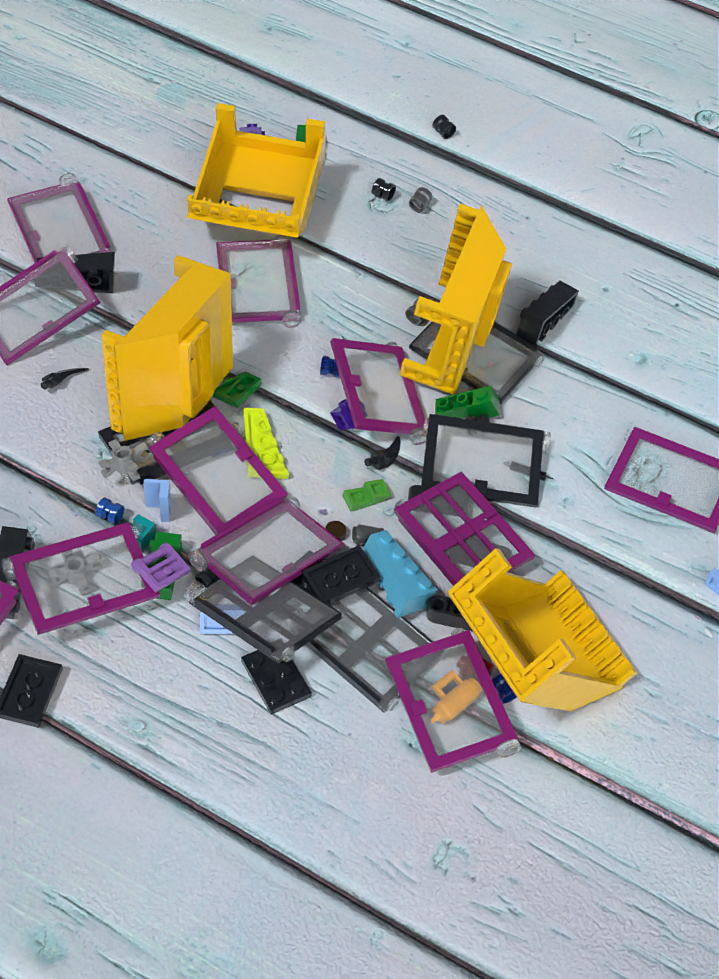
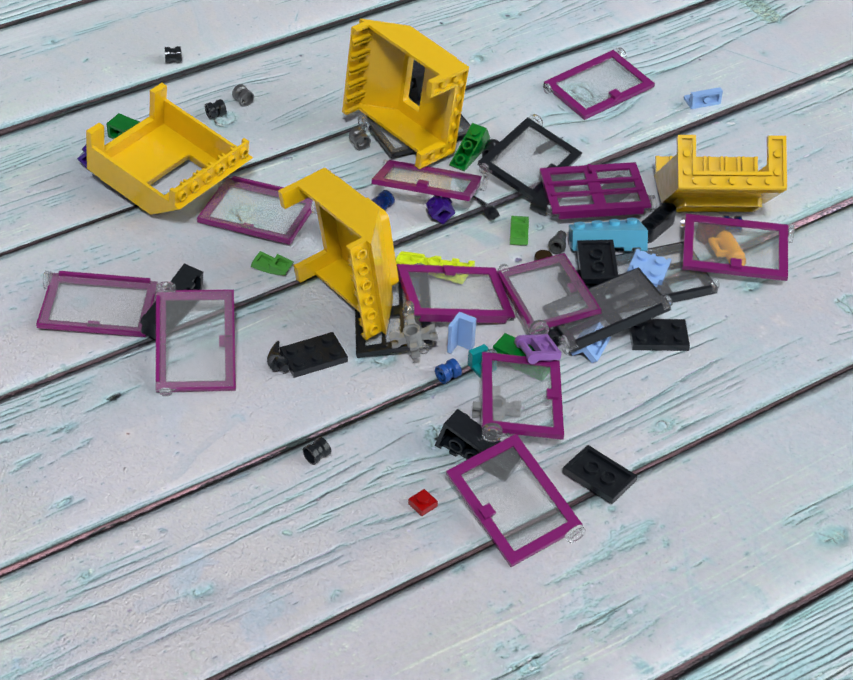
camera: 60 degrees left, 10 degrees down
(80, 401) = (314, 354): none -> black plate
(366, 629) = (652, 266): none -> light blue plate

